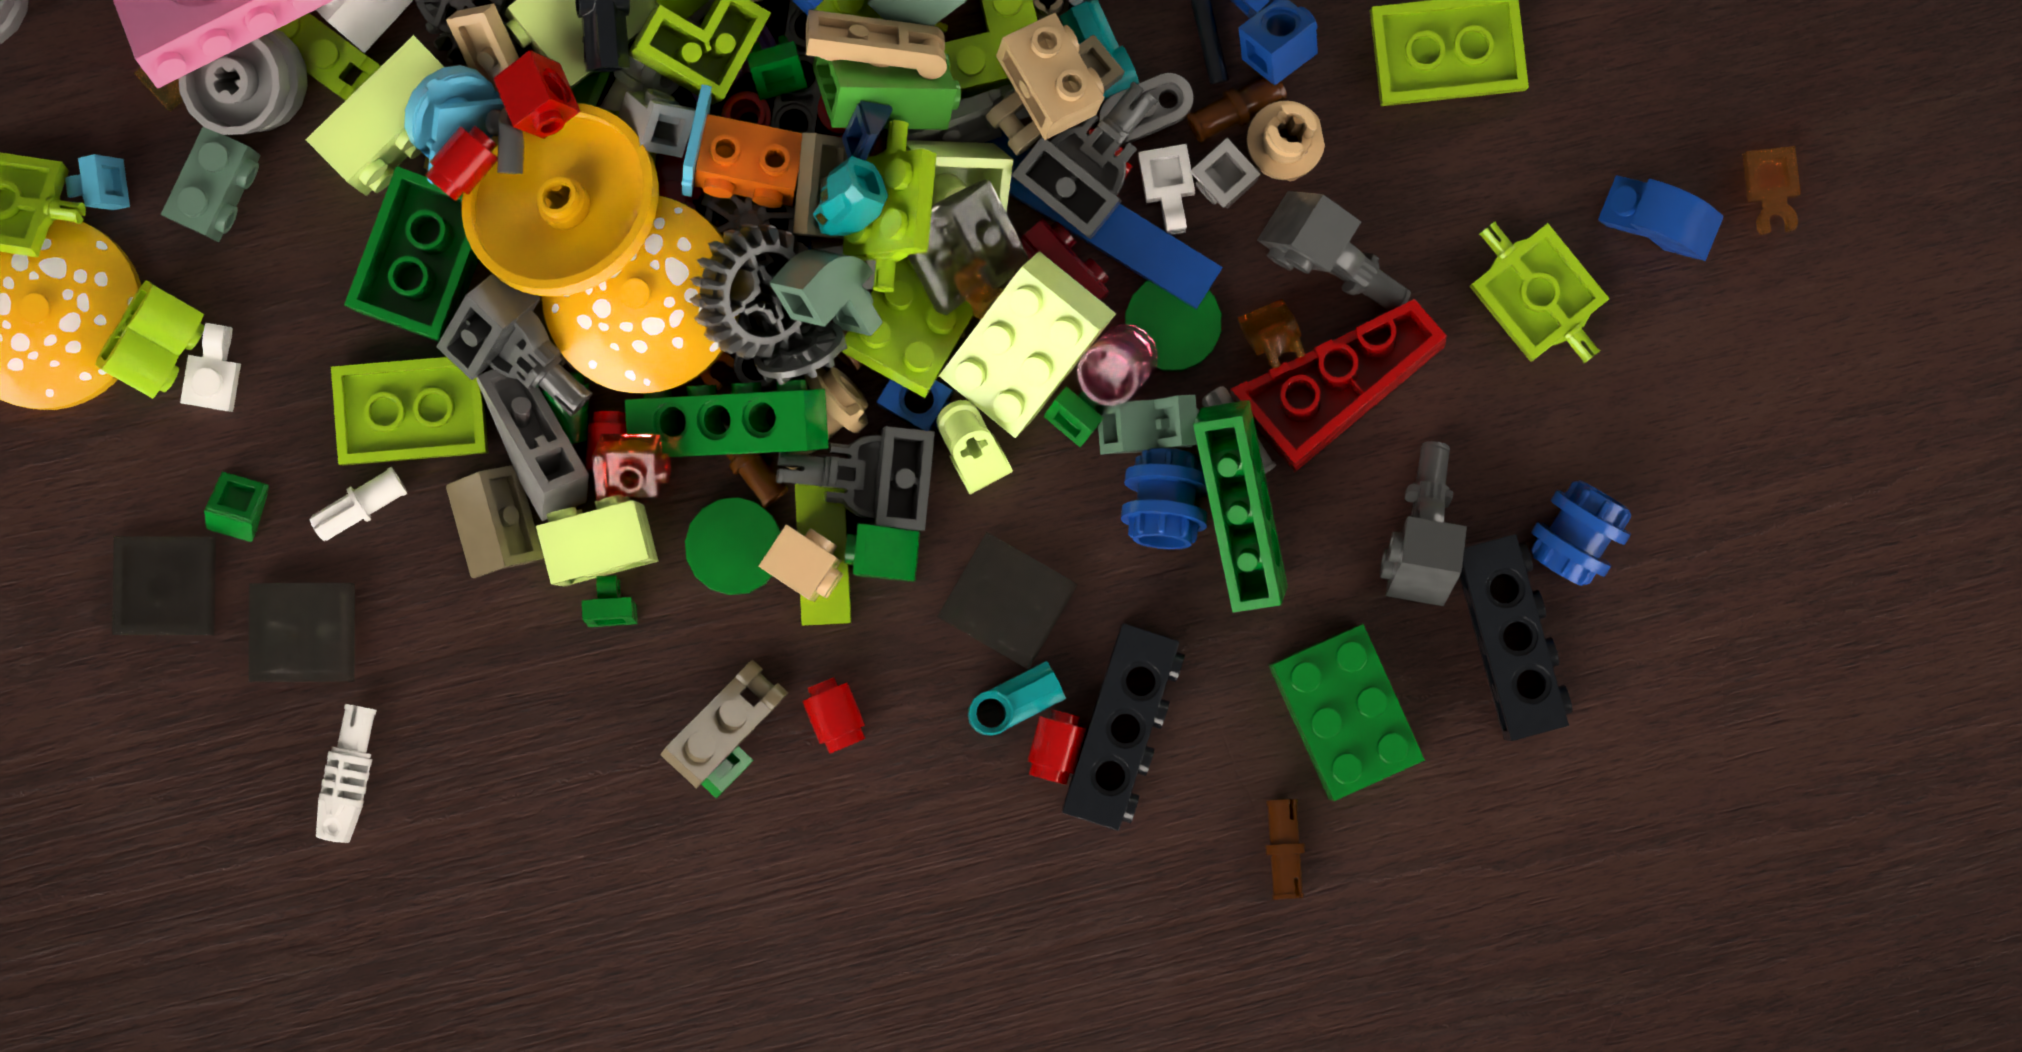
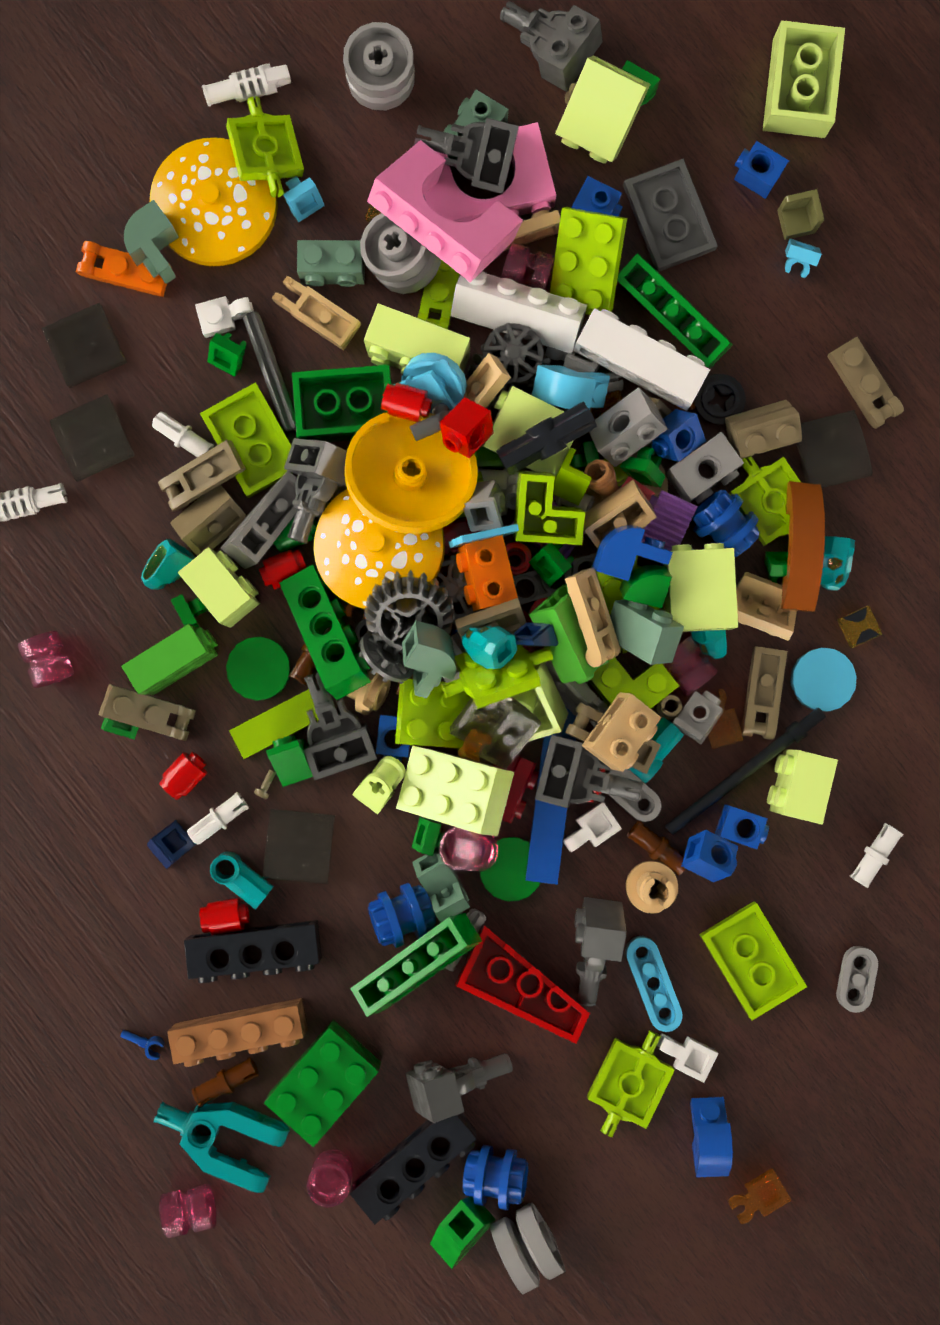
camera: 65 degrees right, 0 degrees up
(53, 421) = (146, 235): none -> sand green brick
(82, 481) = (118, 269): none -> orange plate
(150, 340) = (222, 269): lime brick -> none
(236, 506) = (150, 365): green slope -> none
(271, 390) = (226, 353): none -> green tile
(274, 236) = (319, 314): none -> tan hinge
(325, 340) = (270, 371): none -> dark grey axle
(427, 499) = (202, 475): none -> dark tan plate
(529, 607) = (165, 564): none -> teal rock
(584, 834) = (45, 659): none -> clear pink wheel
(630, 465) = (272, 586): clear red brick -> none
(666, 653) = (170, 659): none -> bright green brick
(803, 563) = (260, 717): tan brick -> none
(908, 619) = (262, 792): none -> dark tan piece
(917, 696) = (217, 818): none -> white axle
(923, 780) = (170, 844): none -> dark blue slope
(1179, 940) = (144, 1043): none -> blue hand
(1222, 798) = (237, 1031): none -> medium nougat brick
(1225, 174) = (613, 861): light grey brick -> none
(1272, 331) = (532, 933): clear orange plate -> none
(1325, 883) = (232, 1116): none -> teal piece
(1436, 977) = (187, 1211): none -> clear pink wheel
(1439, 191) = (660, 996): none -> medium azure plate
(1480, 760) = (330, 1178): none -> clear pink wheel
(1541, 192) = (691, 1056): none -> white plate
(1633, 615) = (461, 1230): none -> green slope
(1693, 529) = (527, 1248): none -> light grey wheel

